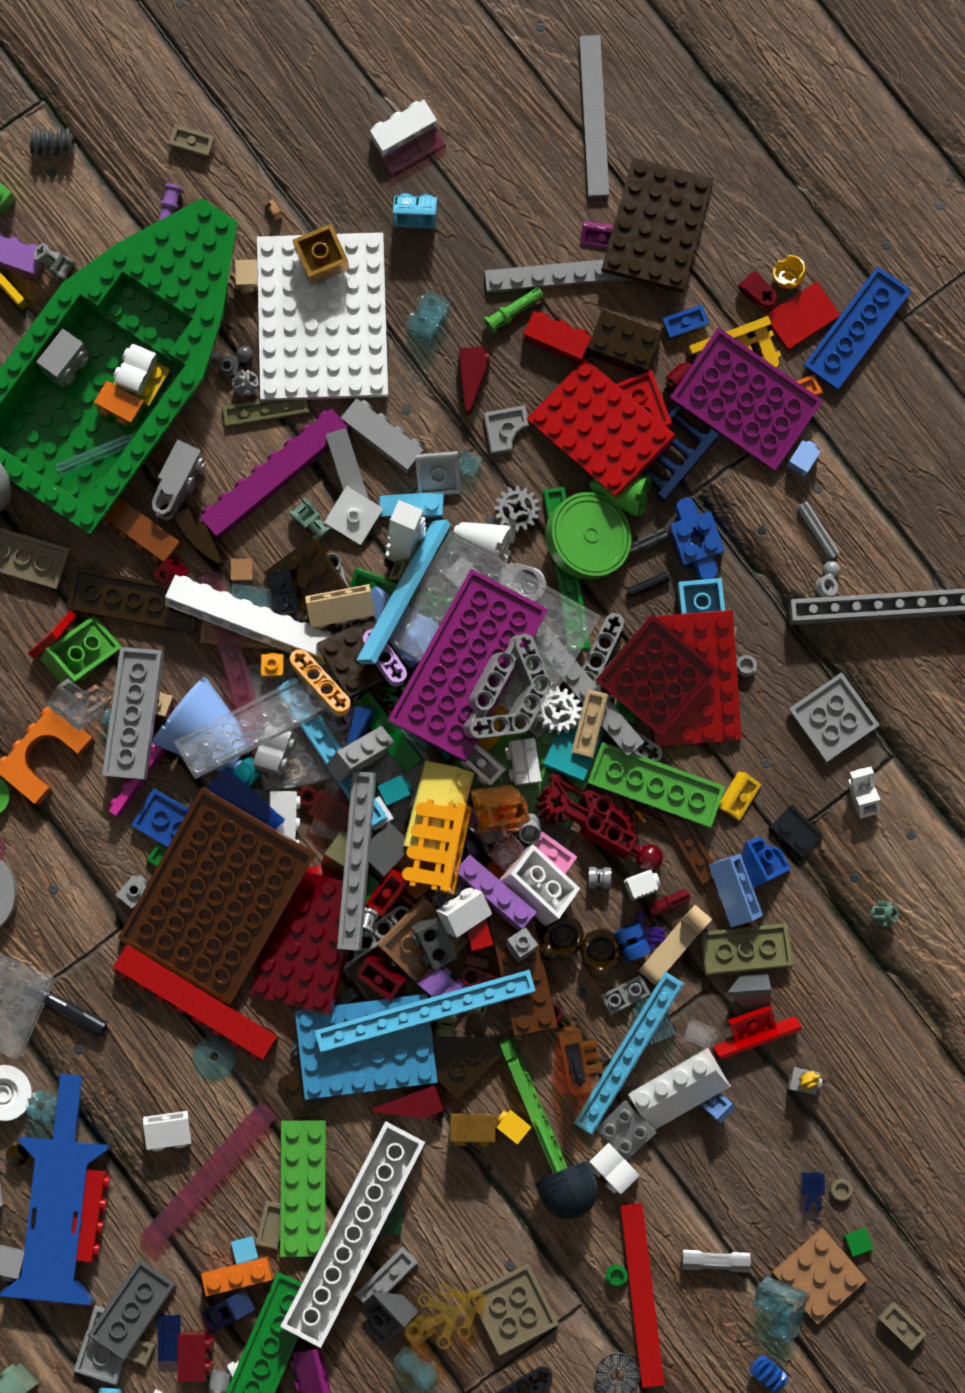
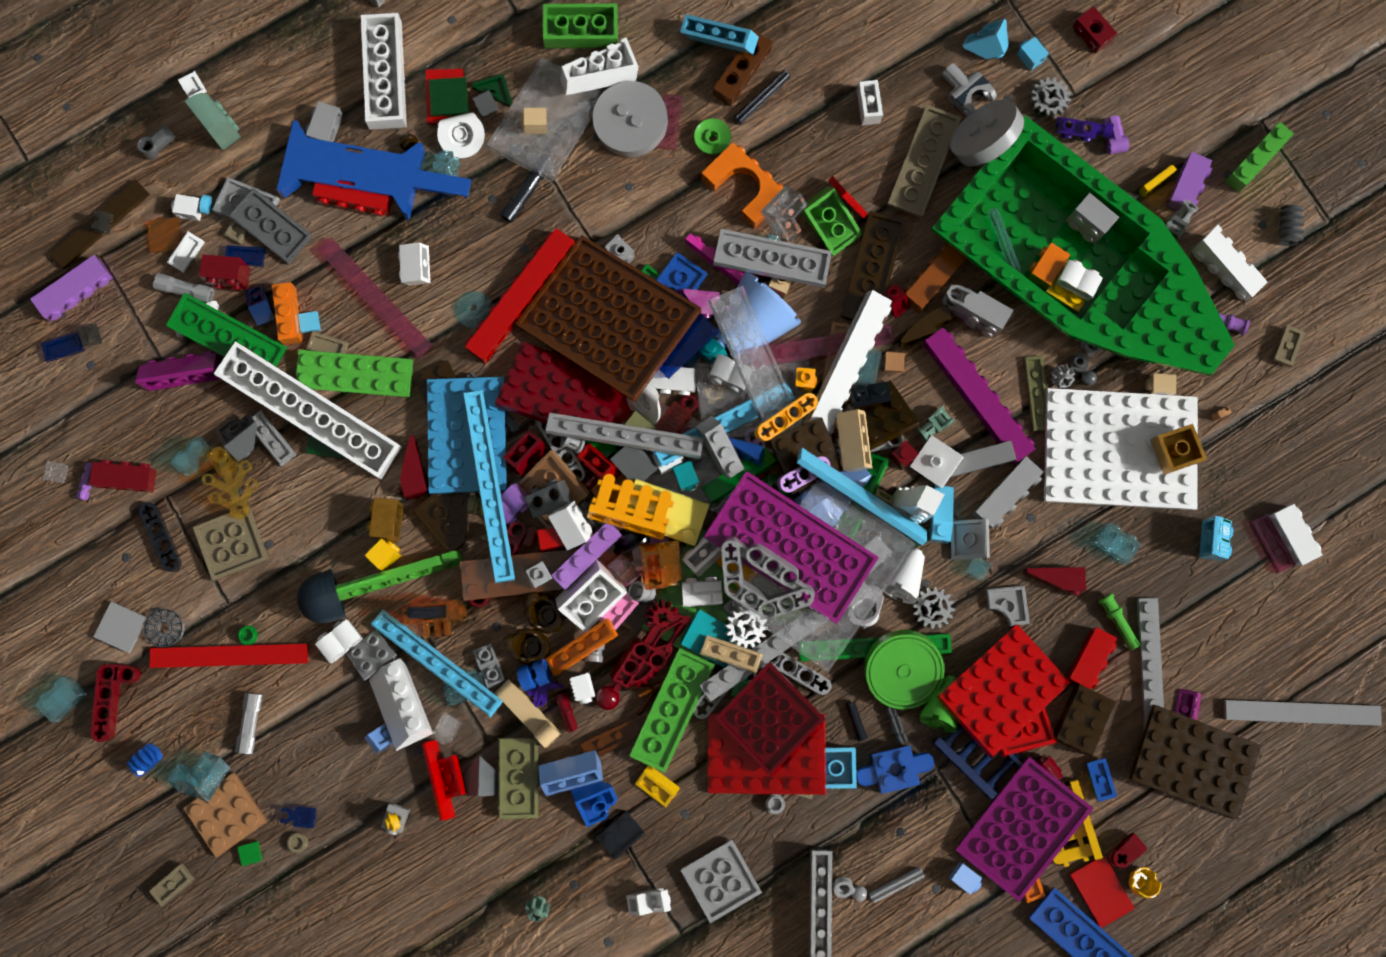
camera: 90 degrees right, 0 degrees up
(103, 208) = (1228, 264): none -> white wedge
(186, 791) = (700, 298): none -> magenta slope
(317, 840) = (647, 404): none -> white hat
(349, 551) = (903, 455): none -> dark red brick
(596, 891) = (581, 647): none -> orange tile

